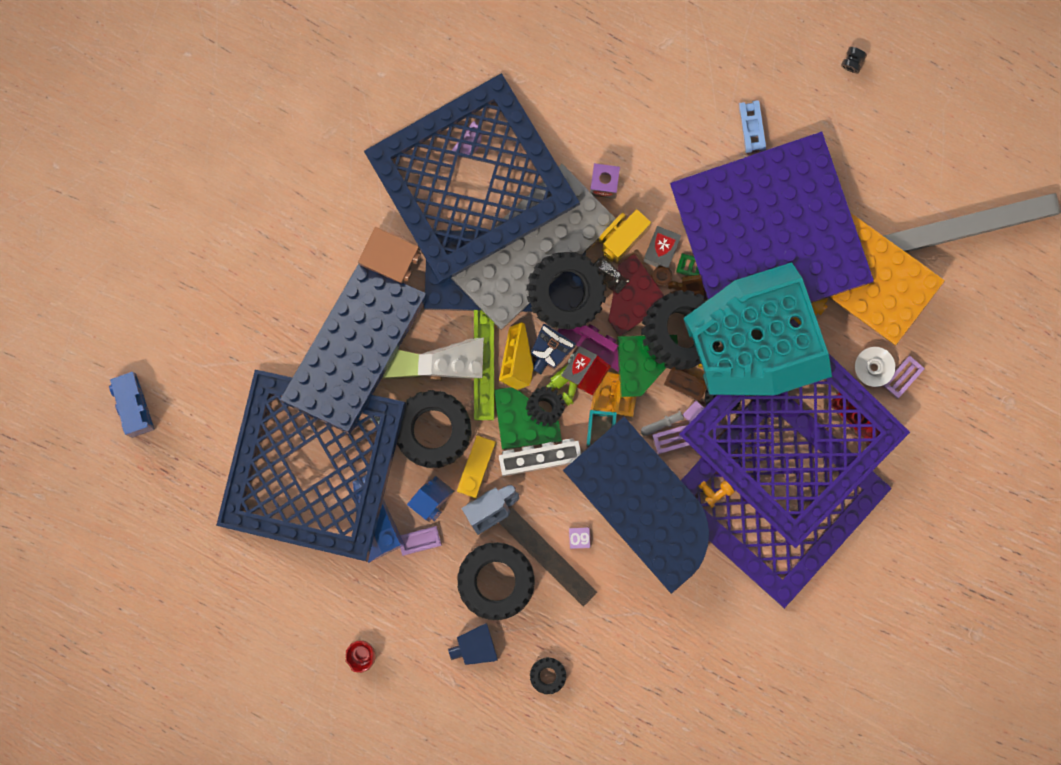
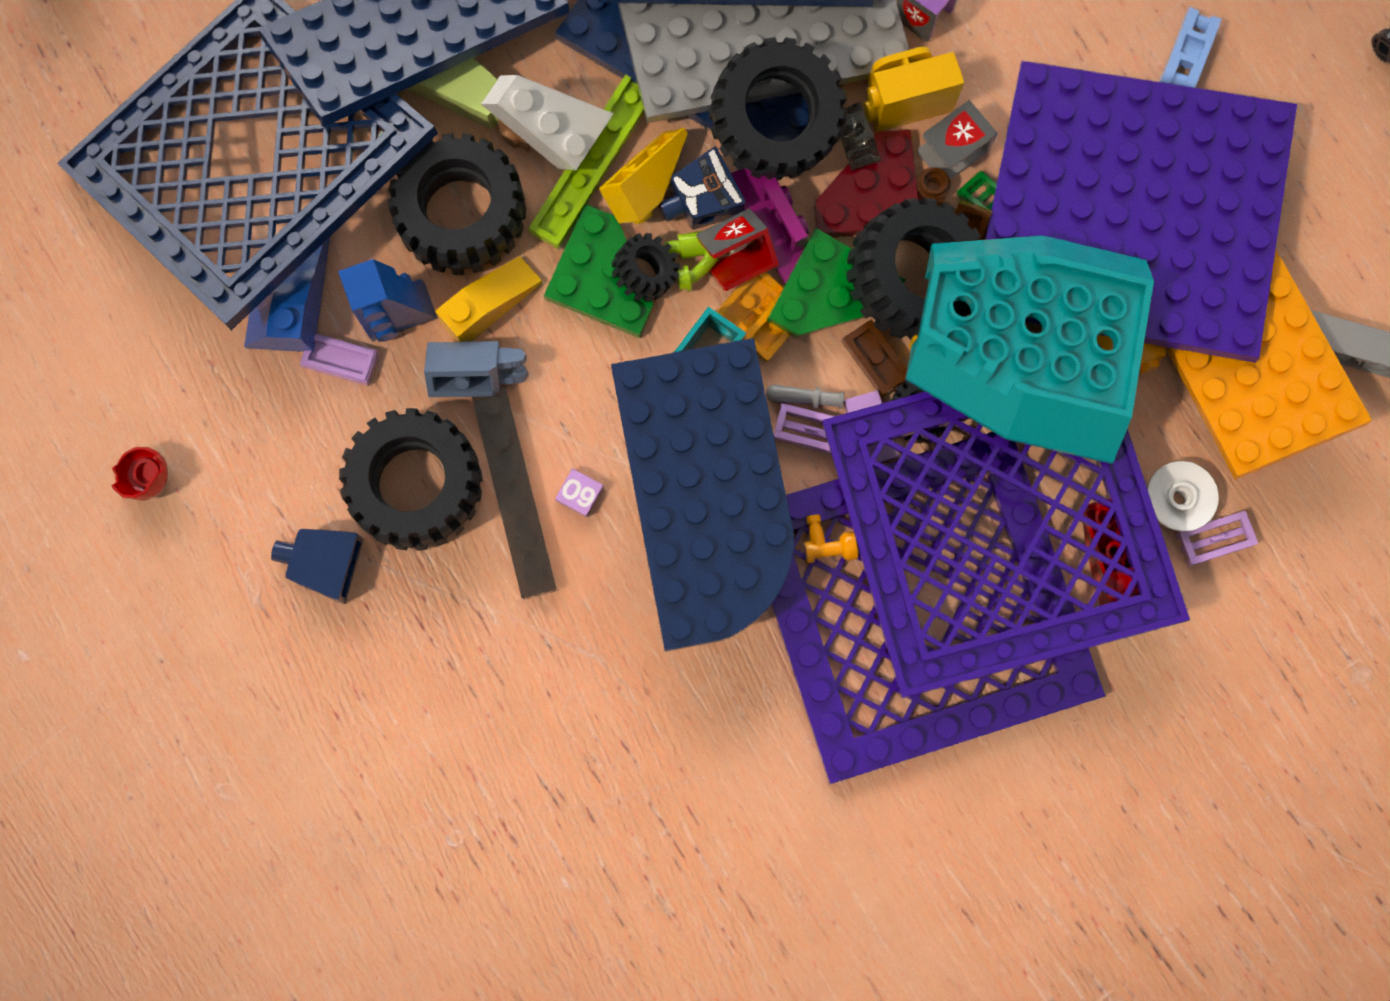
camera: 20 degrees right, 5 degrees down
(539, 458) = (583, 334): white brick -> none
(548, 663) = (387, 656): black tyre -> none

